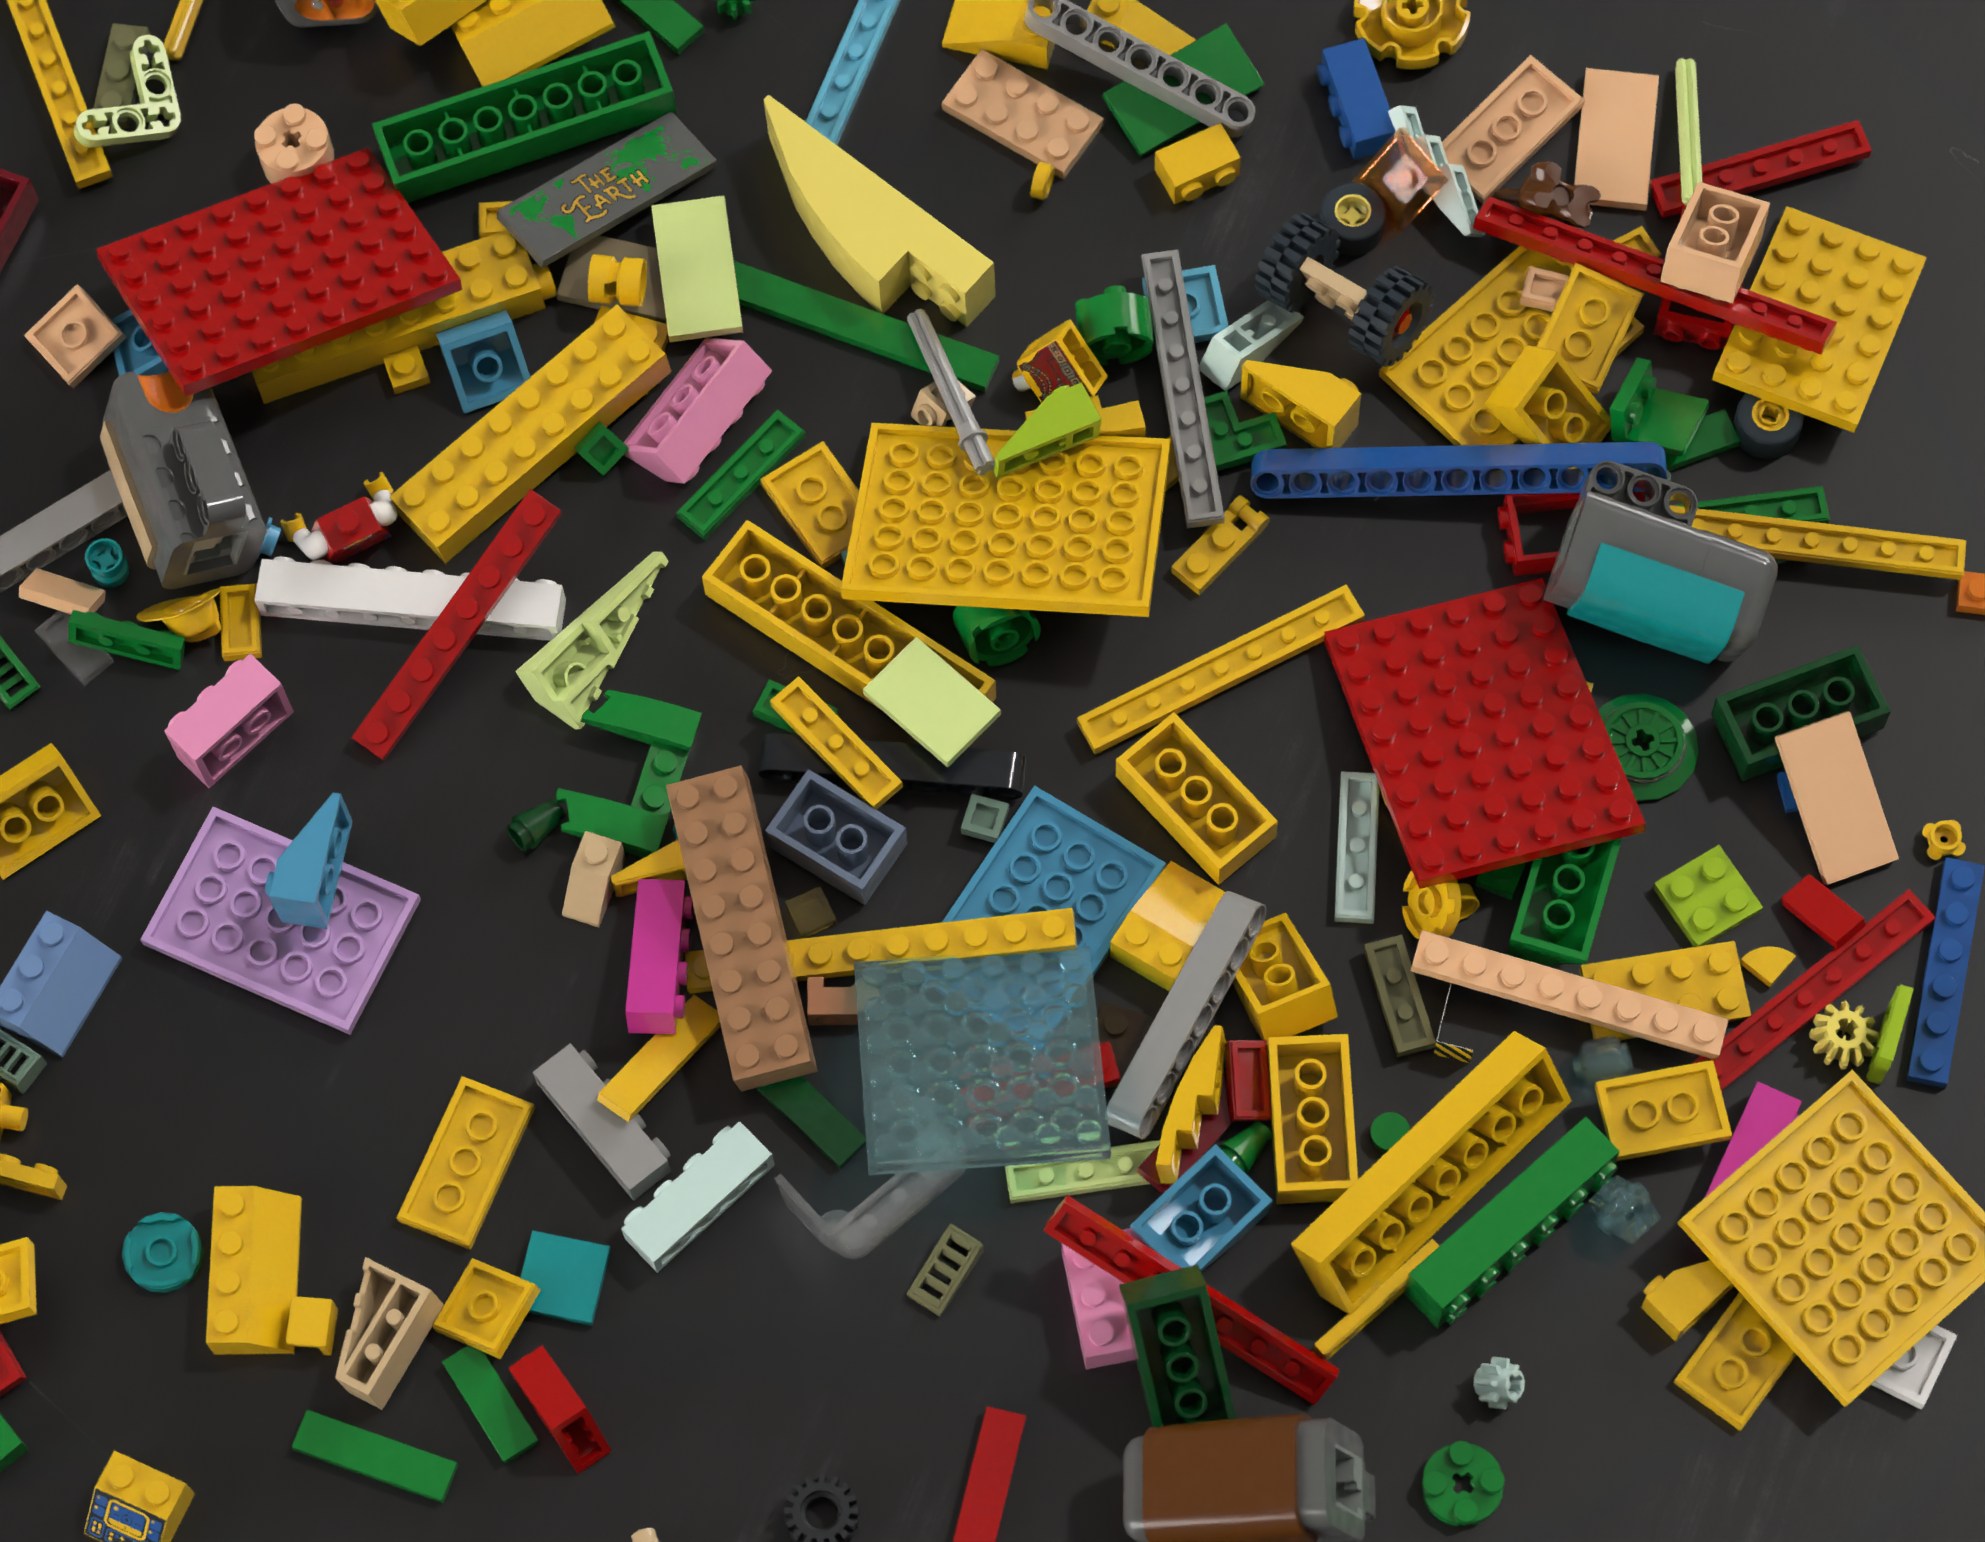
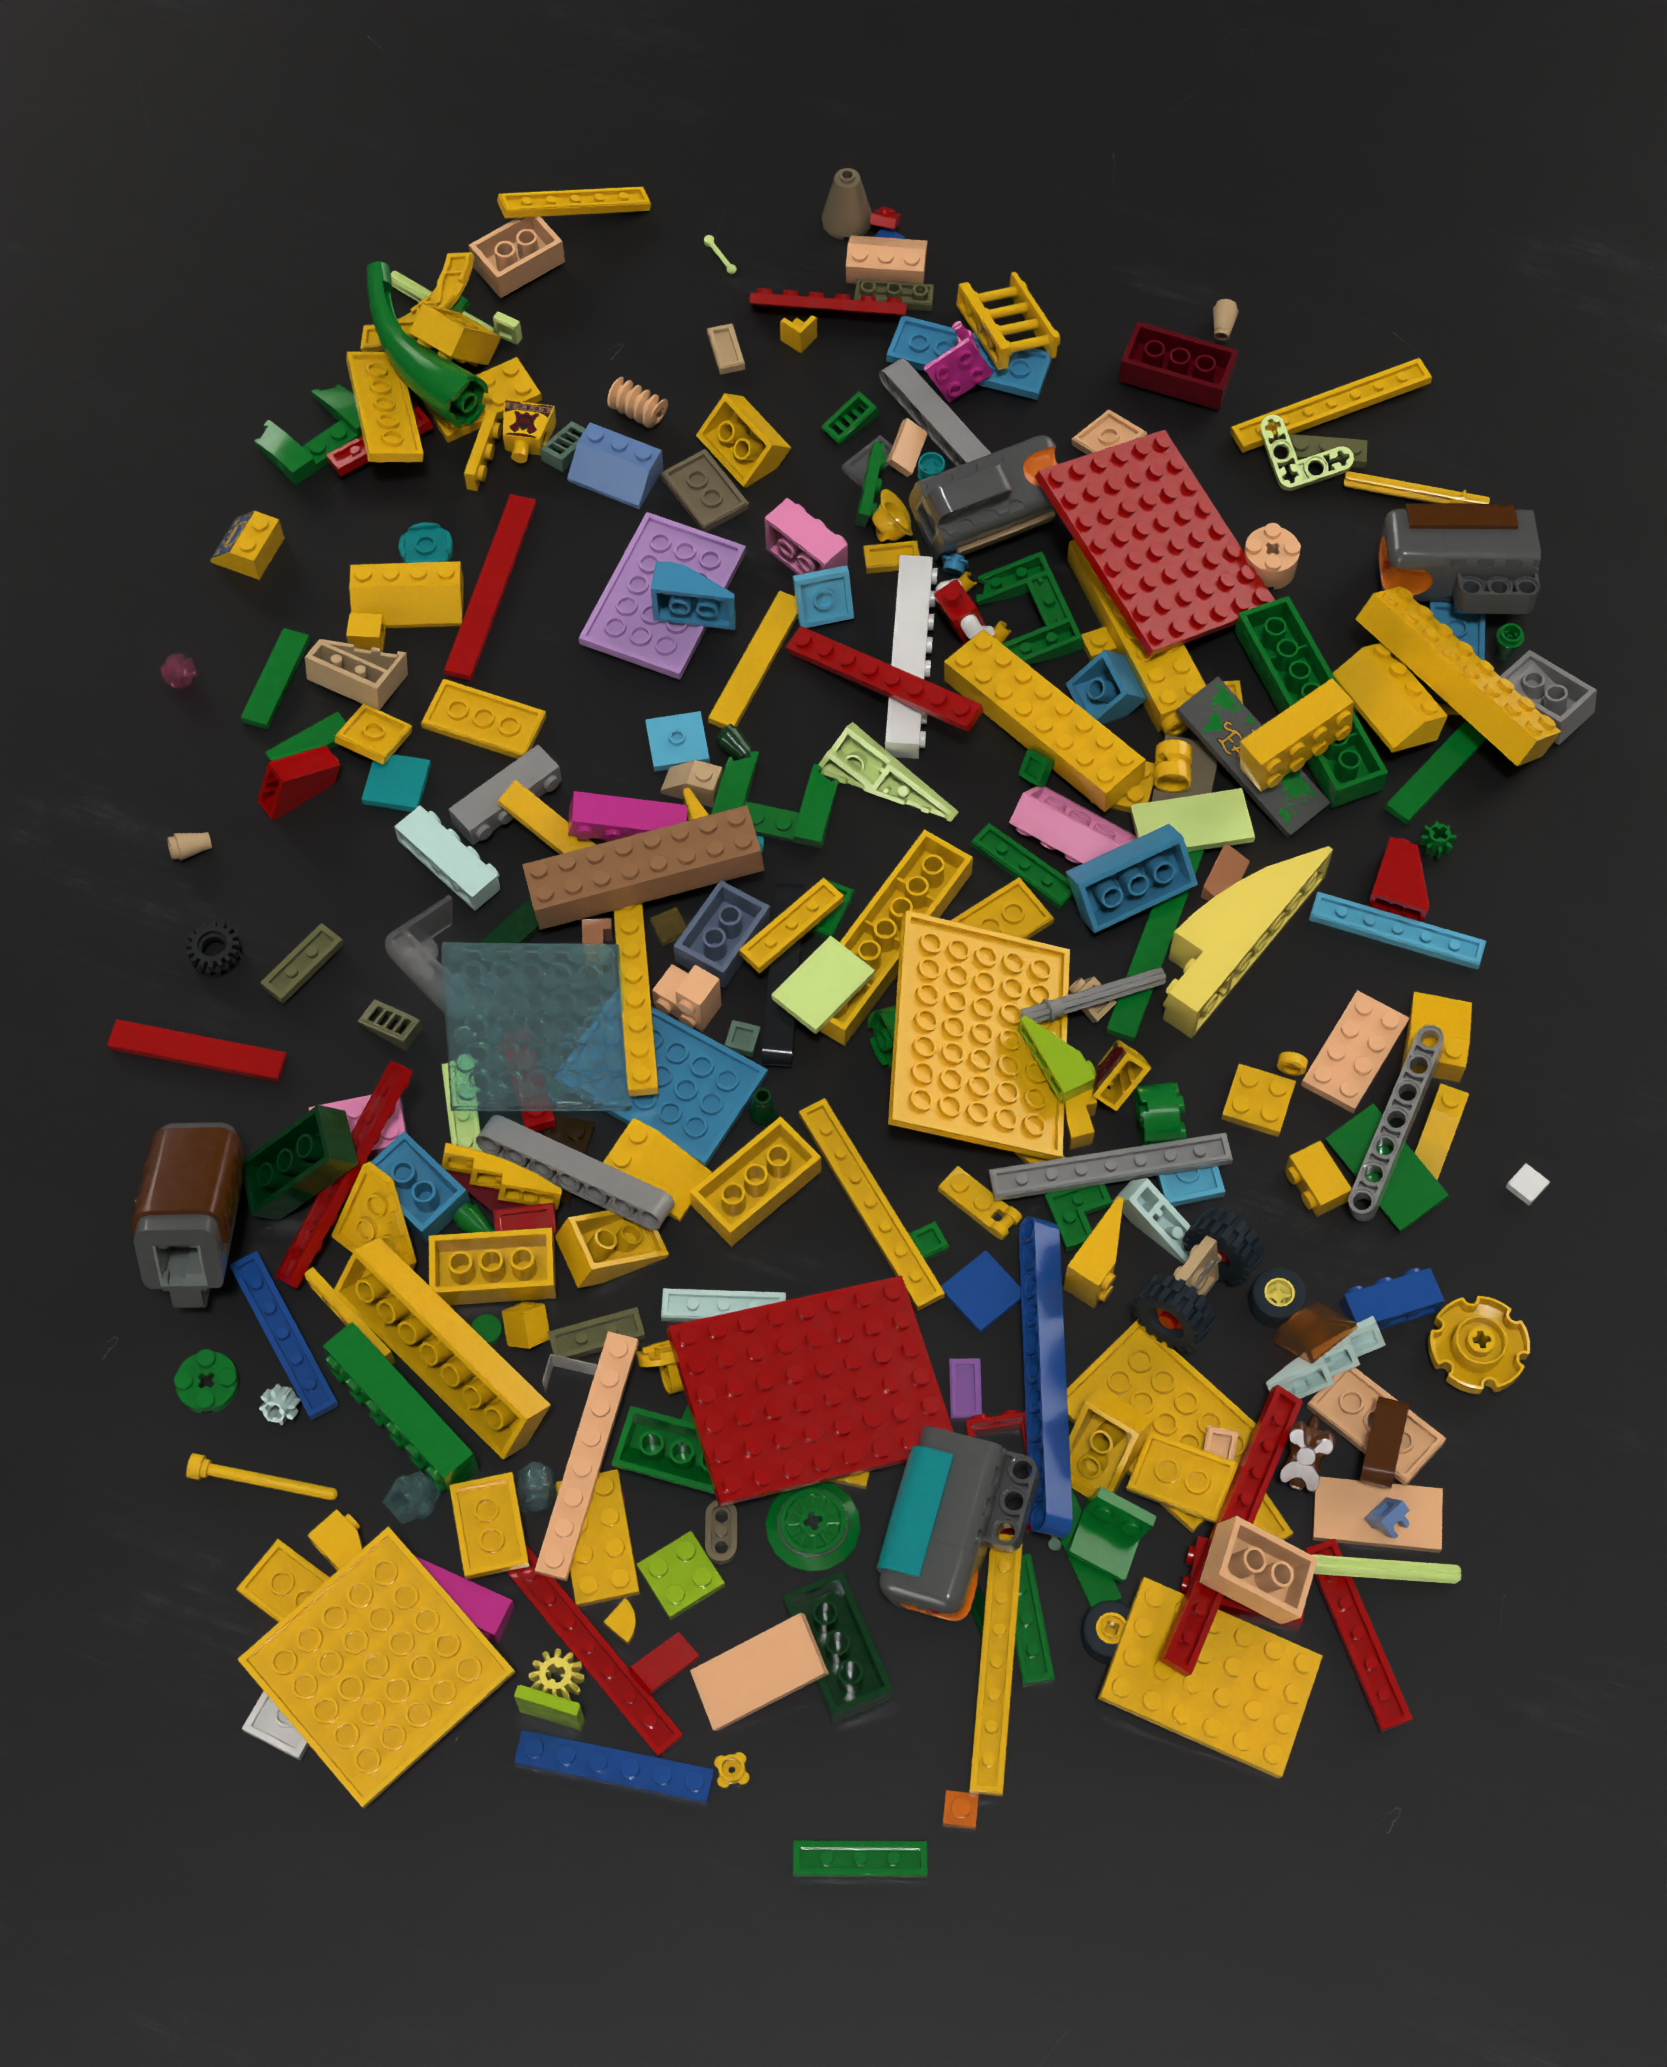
camera: 85 degrees right, 5 degrees down
(103, 867) = (704, 490): none -> dark tan tile
(242, 1158) = (490, 588): none -> red tile
(298, 434) = (1034, 577): none -> green wedge
(315, 700) = (823, 597): none -> medium azure plate
(398, 799) = (755, 662): none -> yellow tile
(521, 902) = (676, 740): none -> medium azure plate
(605, 118) = (1296, 735): none -> yellow brick
(770, 241) = (1226, 872): none -> nougat slope
(786, 334) = (1132, 878): none -> dark azure brick
(791, 41) = (1401, 882): none -> red slope
(849, 1391) = (302, 963): none -> olive plate
(930, 876) = (689, 996): none -> light nougat brick
(1085, 224) = (1258, 1100): none -> yellow plate
(1086, 793) = (763, 1107): none -> dark green cone
(1253, 1262) = (373, 1213): none -> yellow plate
(1269, 603) = (929, 1241): none -> green tile
(1339, 545) = (982, 1292): none -> blue tile
(1386, 1081) = (526, 1325): none -> yellow panel
(1418, 1375) = (284, 1335): none -> blue plate
(1465, 570) = (965, 1388): none -> medium lavender tile
(1542, 113) = (1384, 1442): none -> reddish brown beam
(1582, 1482) = (201, 1467): none -> yellow piece
(1626, 120) = (1387, 1515): none -> medium blue tile
(1654, 848) = (721, 1533): none -> dark tan plate

